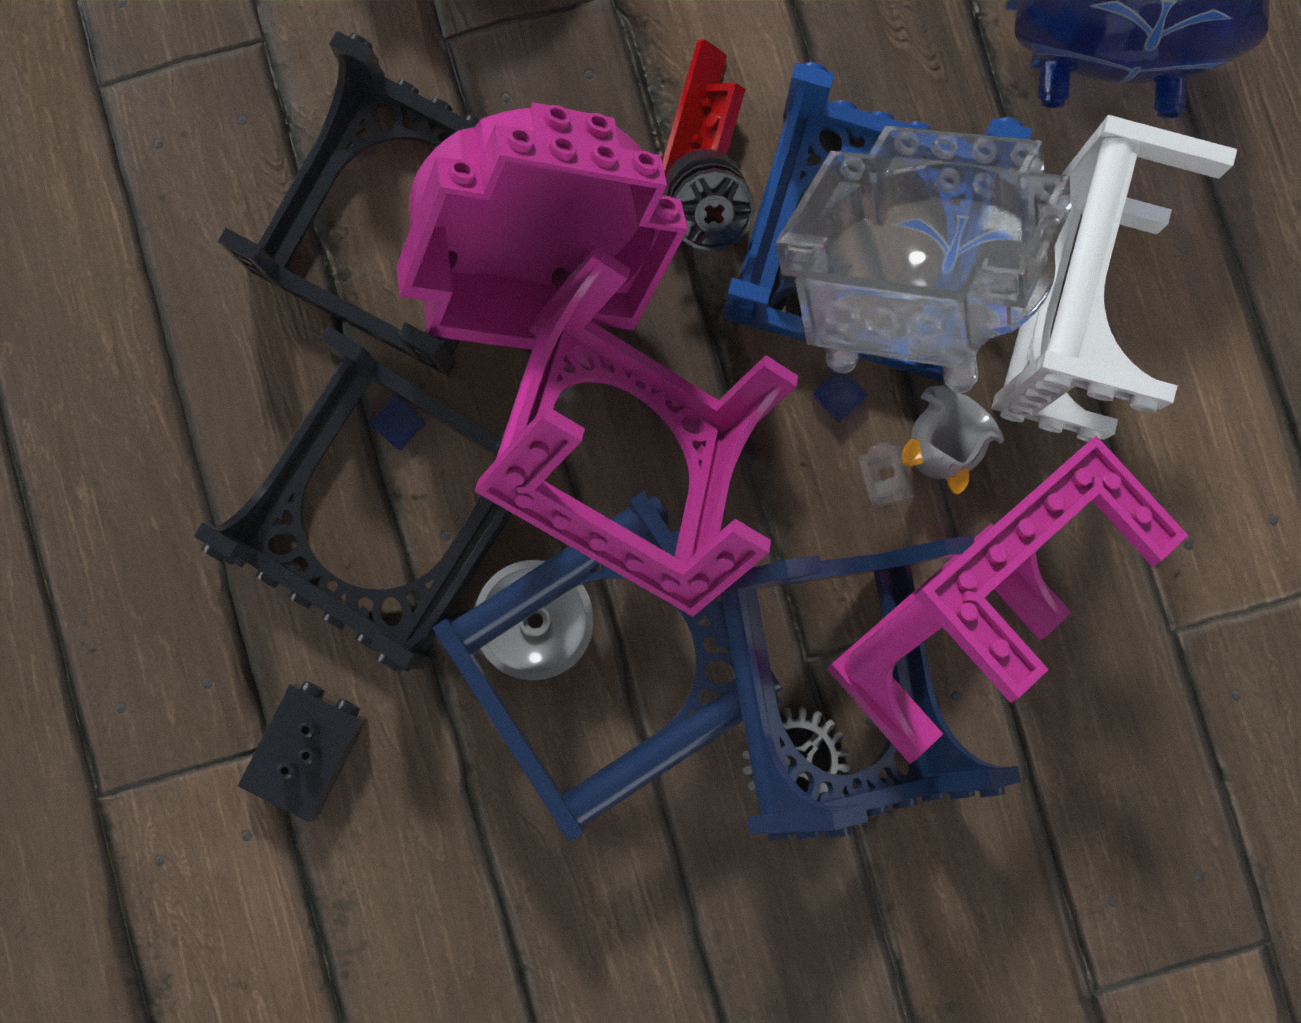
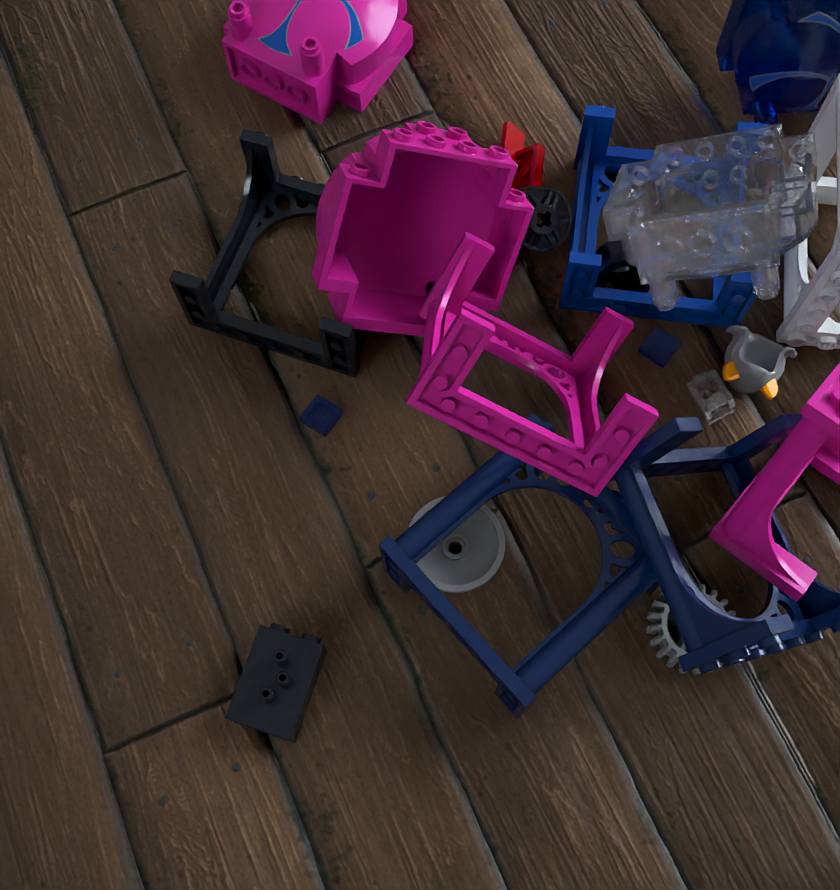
camera: 10 degrees left, 15 degrees down
(251, 530) = (213, 506): black arch -> none

